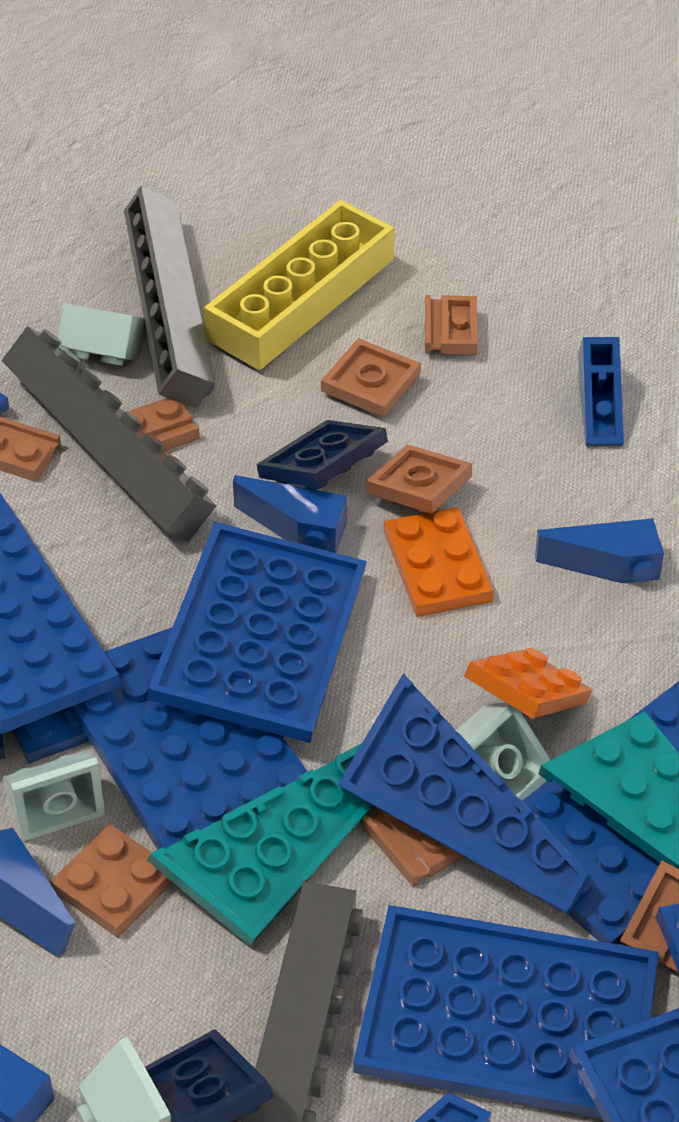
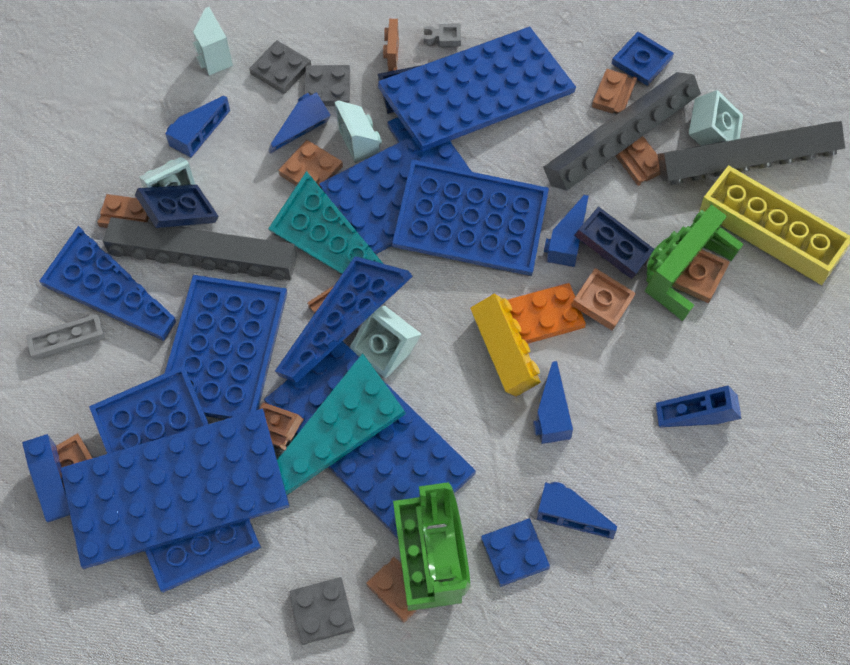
camera: 90 degrees right, 15 degrees up
(395, 374) = (681, 250): none -> bright green piece
(451, 324) = (756, 319): nougat plate -> none
(503, 595) = (505, 345): none -> yellow brick
(529, 682) = (431, 353): orange plate -> none

